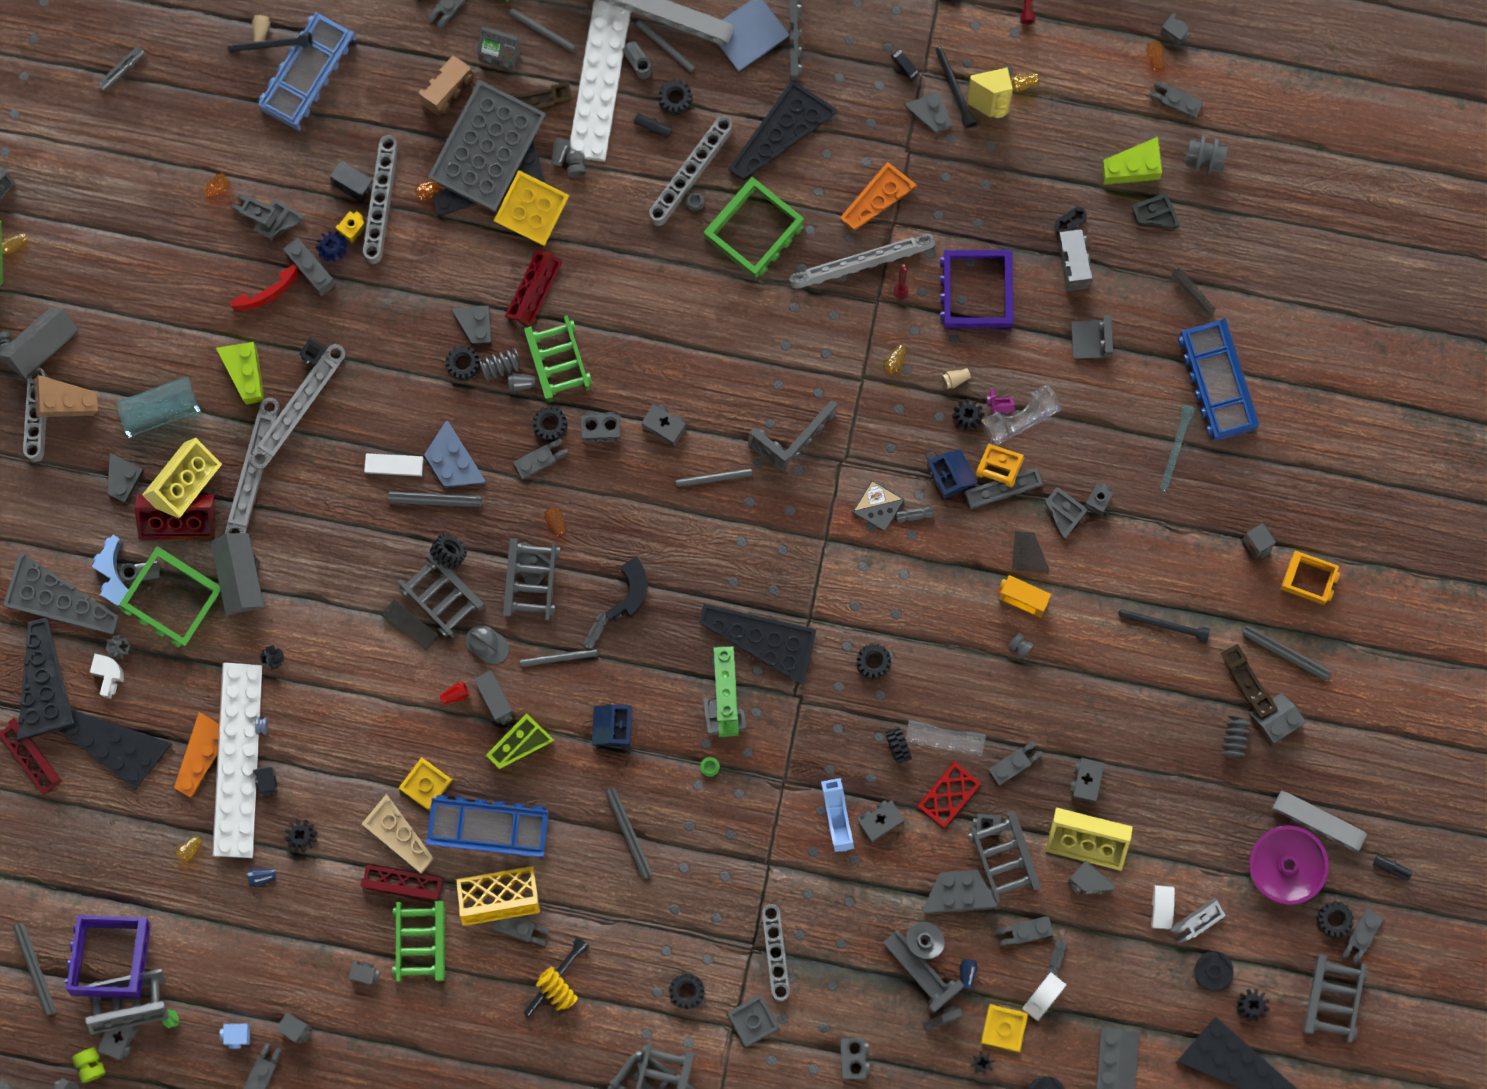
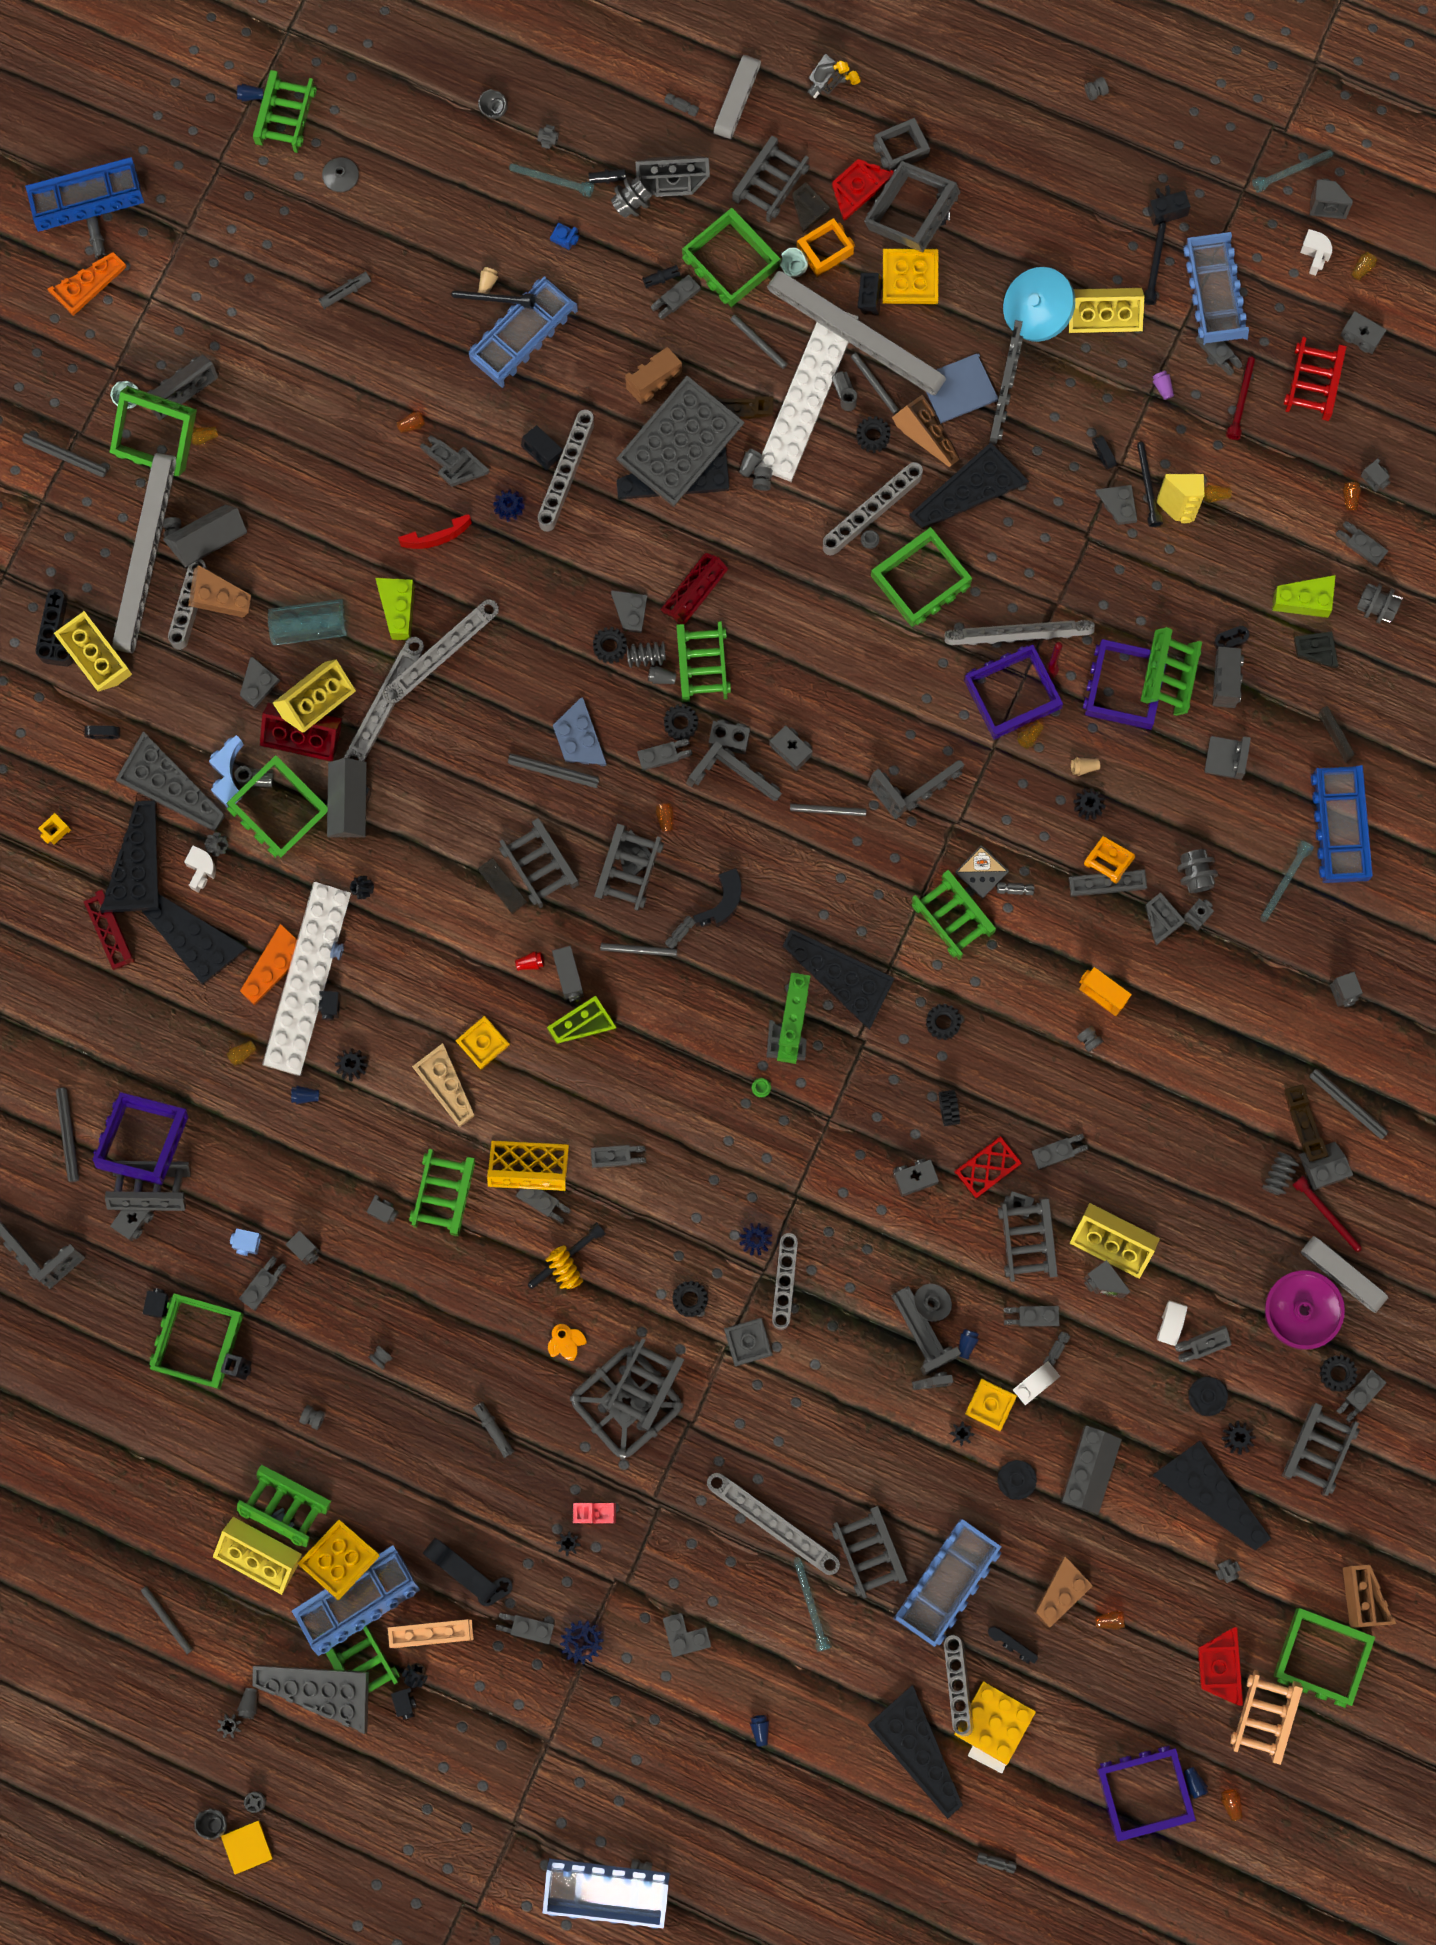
camera: 10 degrees right, 0 degrees up
(88, 1064) = (98, 1238): lime wheel -> none
(173, 1019) = (188, 1214): bright green plate -> none
(309, 267) = (482, 520): dark grey brick -> none
(312, 351) = (467, 601): black brick -> none
(351, 232) = (531, 496): yellow brick -> none
(393, 464) = (521, 728): white tile -> none
(398, 889) = (434, 1137): dark red fence -> none
(426, 189) = (612, 470): clear orange cone -> none
(448, 551) = (555, 823): black tyre -> none
(487, 644) = (572, 921): dark grey piece -> none
(487, 826) = (533, 1096): window -> none
(498, 48) = (712, 349): dark grey slope -> none
(531, 208) = (709, 510): yellow plate -> none
(576, 1063) = (565, 1345): none -> light orange plate
(582, 867) = (615, 1156): none -> dark grey hinge
(612, 725) = (676, 1026): dark blue slope -> none
(619, 455) = (740, 767): none -> dark grey bracket
(628, 833) = (668, 1134): dark grey axle -> none
(652, 125) = (845, 457): black pin -> none
(720, 79) = (919, 424): none -> medium nougat wedge
(740, 911) = (759, 1234): none -> clear blue gear
(837, 815) = (874, 1161): light blue arch -> none
(848, 1058) = (833, 1400): dark grey brick -> none
(856, 291) = (1028, 717): none -> dark purple window
(877, 547) = (960, 897): none -> bright green fence
(879, 194) = (1050, 572): orange wing -> none
(939, 738) = (986, 1108): clear arch -> none
(951, 473) = (1060, 856): dark blue slope -> none
(959, 892) = (976, 1264): dark grey wing -> none
(1002, 405) = (1122, 801): magenta bracket -> none
(1003, 267) = (1156, 666): none -> bright green fence
(1028, 554) = (1117, 951): clear smoke wing -> none
(1042, 405) = (1162, 811): clear arch -> none
(1087, 455) = (1197, 870): none -> dark grey piece
(1090, 791) = (1134, 1175): dark grey brick -> none
(1200, 633) = (1269, 1066): black piece -> none
(1259, 743) = (1303, 1186): none -> dark red piece
(1315, 562) = (1398, 1023): light orange window -> none
(1392, 867) = (1406, 1335): black axle -> none

